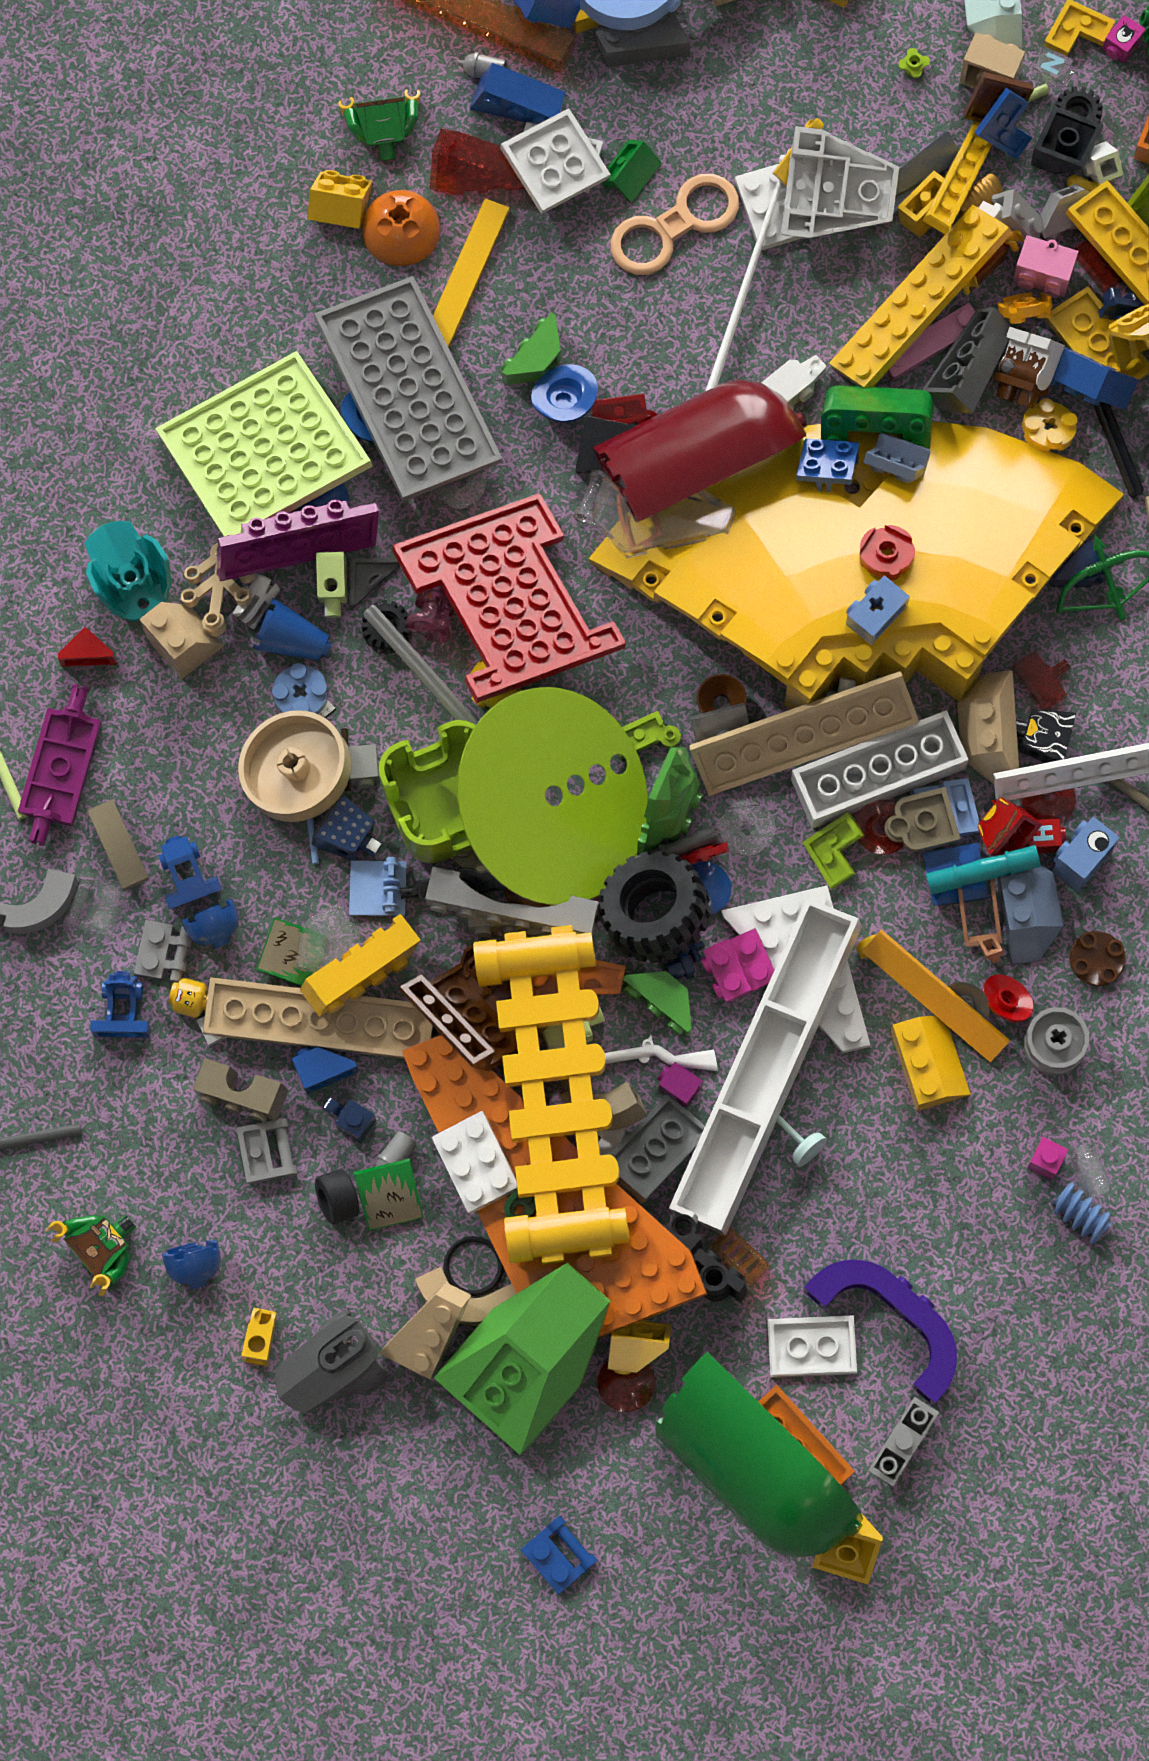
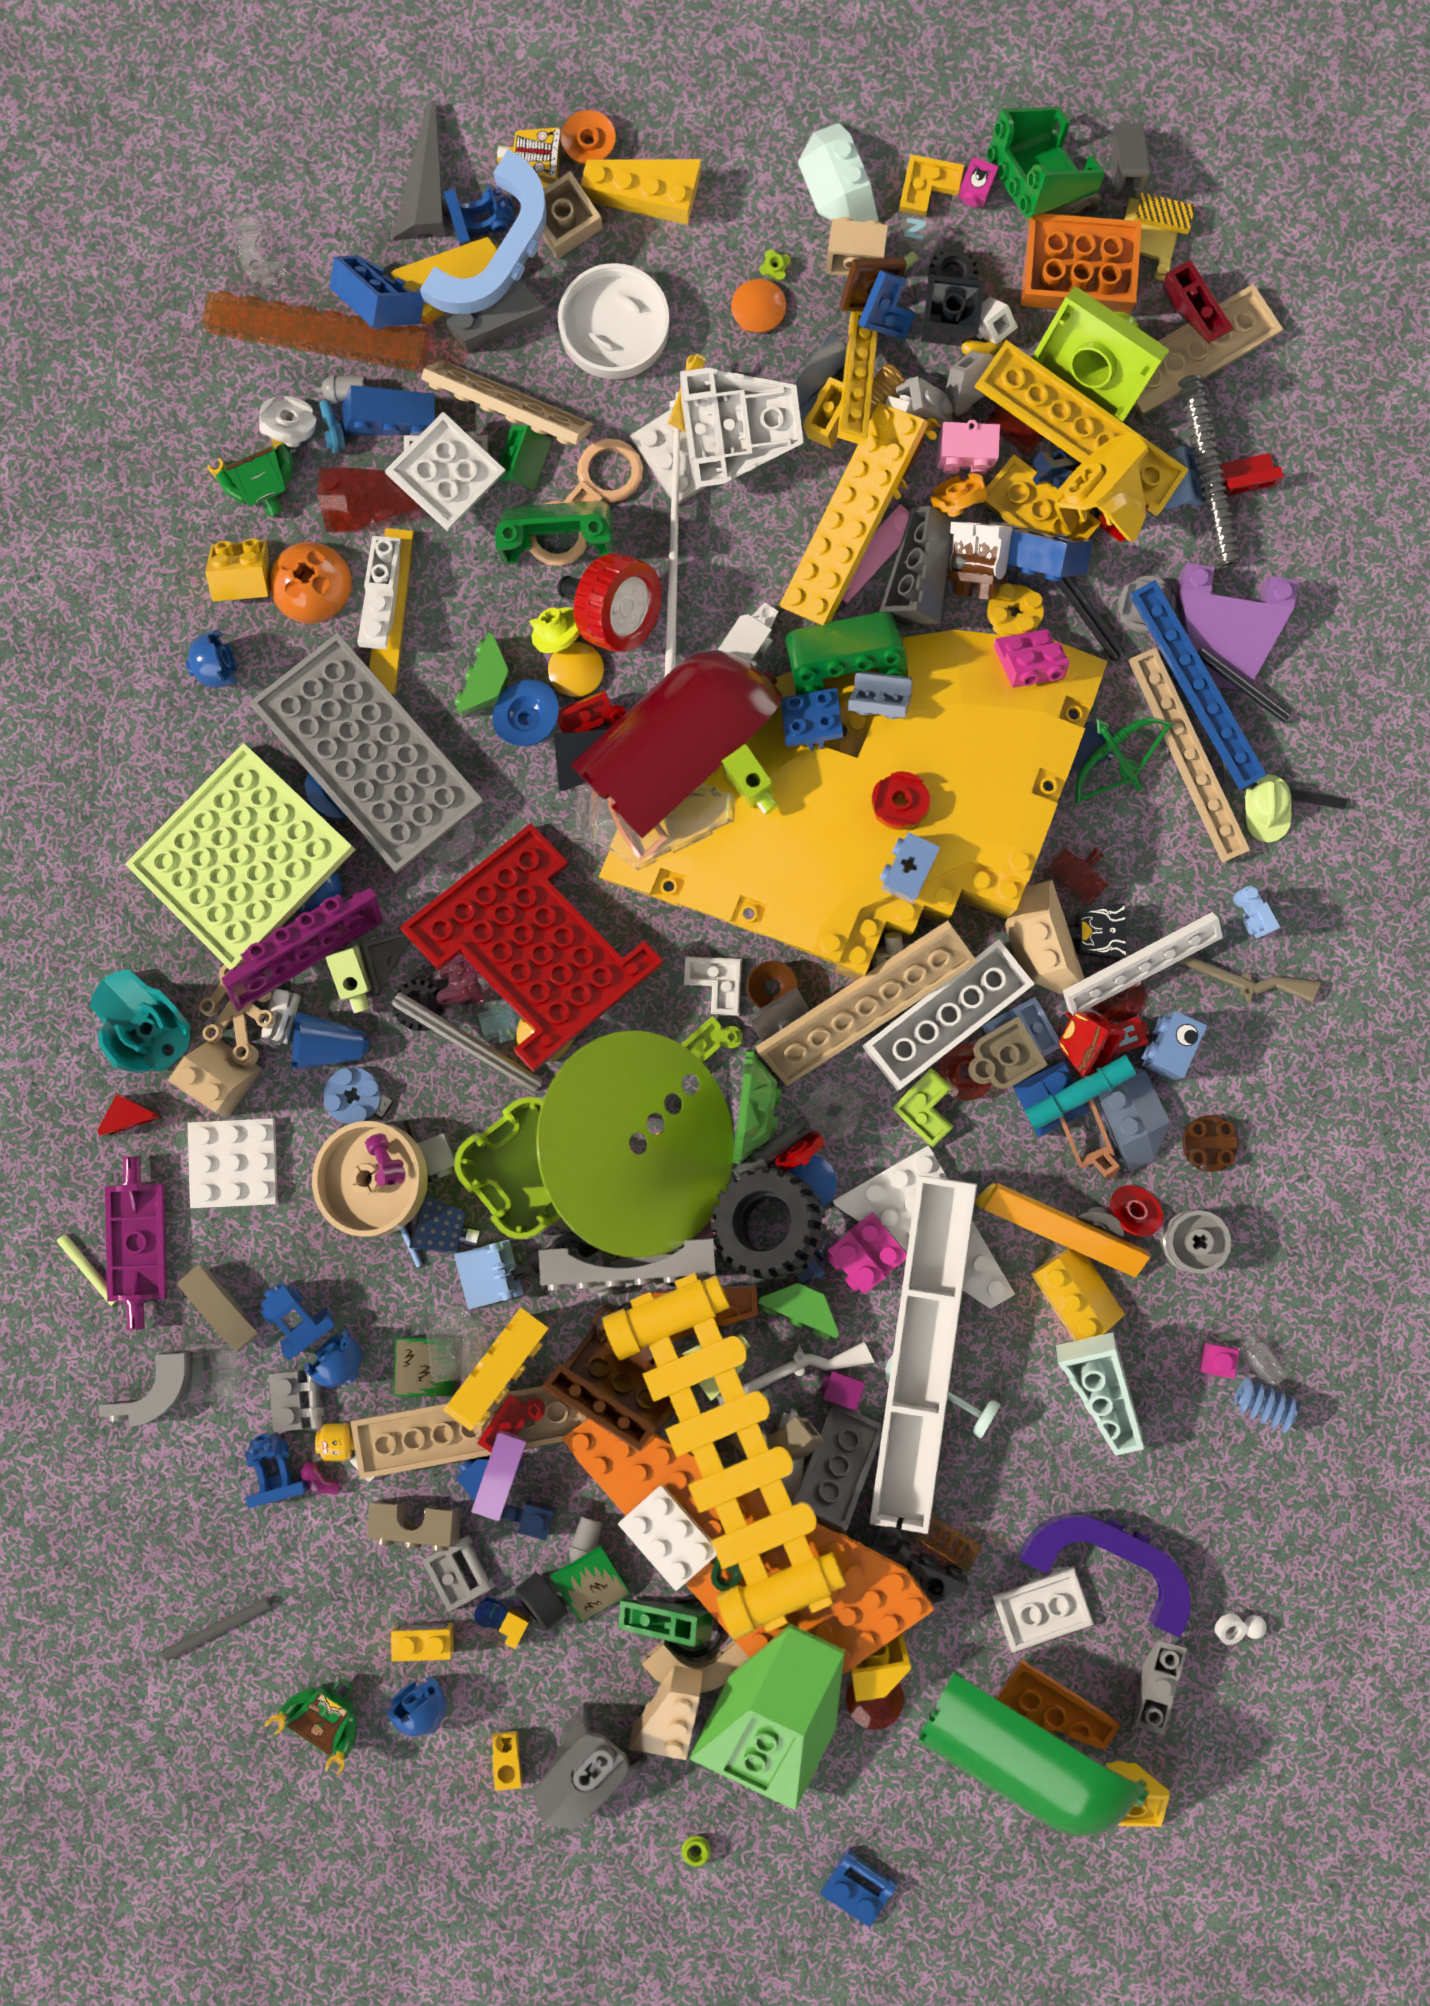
camera: 20 degrees left, 10 degrees up
(160, 1031) = (316, 1481): none -> magenta arm
(170, 722) = (232, 1163): none -> white plate
(214, 1202) = (422, 1642): none -> yellow brick
(288, 1197) = (502, 1618): none -> leg
(290, 270) = (211, 660): none -> blue cylinder
(316, 757) = (389, 1171): none -> magenta leg
(333, 1062) = (499, 1475): none -> medium lavender slope
(356, 1021) = (511, 1419): none -> red hinge
(413, 79) = (274, 424): none -> white plate
(413, 1465) = (689, 1857): none -> lime plate
(449, 1247) = (666, 1621): none -> green slope
(456, 662) = (499, 1024): none -> clear light blue brick
(463, 106) = (334, 436): none -> dark azure plate
(463, 251) = (381, 592): none -> white slope
(609, 225) = (519, 523): none -> green windscreen
(615, 327) = (554, 630): none -> neon yellow piece
(623, 369) = (576, 670): none -> yellow dish
(636, 121) = (515, 405): none -> tan plate
(677, 314) = (614, 601): none -> red wheel
(677, 679) = (722, 975): none -> white tile
(749, 73) = (613, 321): none -> white piece
(753, 496) = (745, 771): none -> lime torso
(888, 95) = (758, 306): none -> orange dish
(926, 1135) = (1100, 1381): none -> light aqua wedge
(1011, 1421) = (1232, 1629): none -> white plate
(1050, 468) = (1031, 658): none -> dark pink plate

